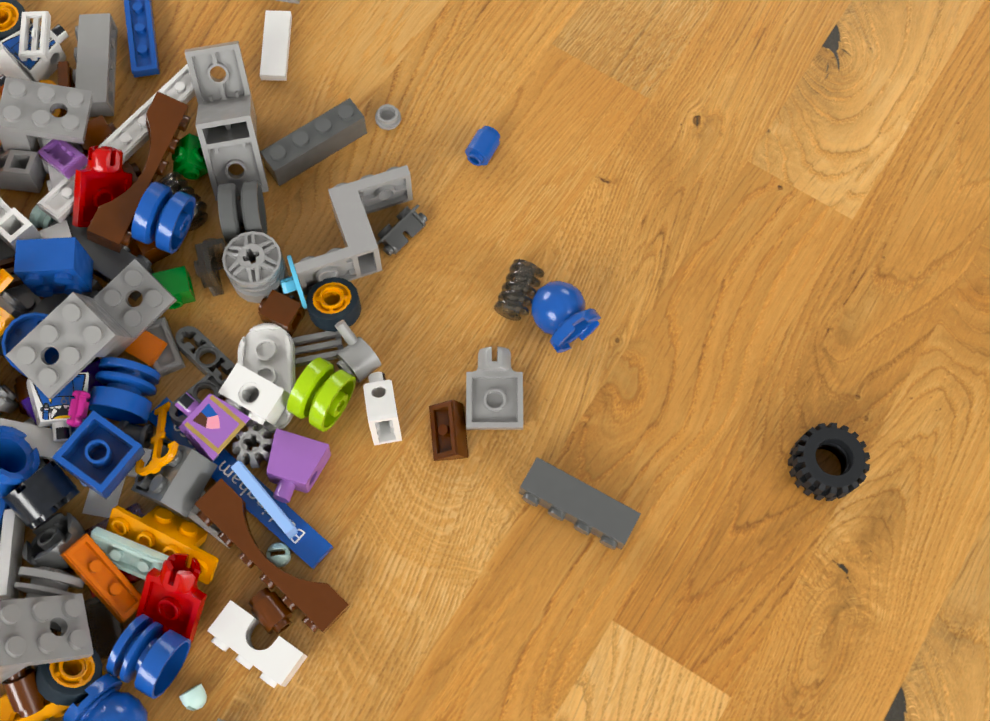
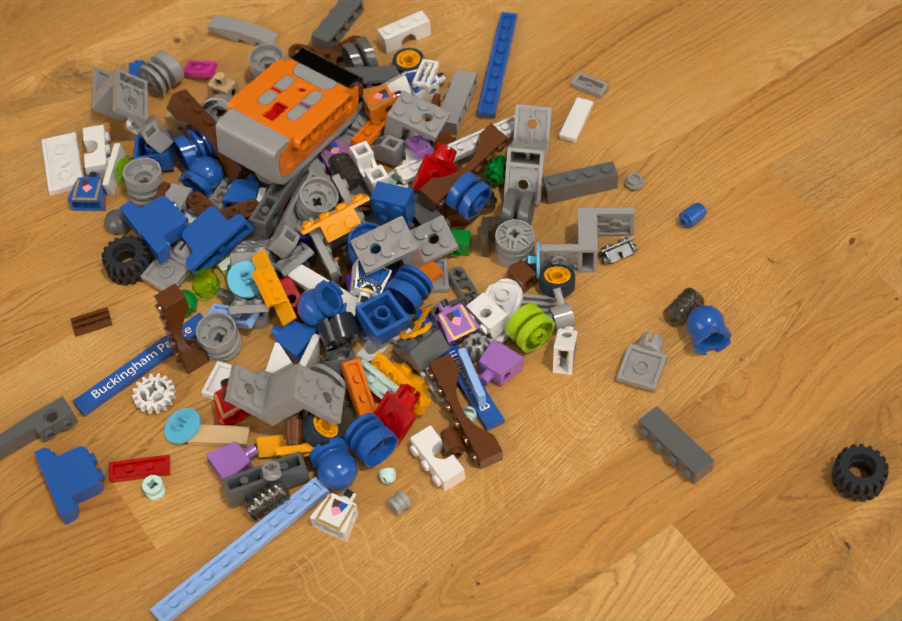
camera: 30 degrees right, 15 degrees down
(78, 408) = (379, 286): dark pink piece -> none
(448, 431) = (604, 378): reddish brown slope -> none

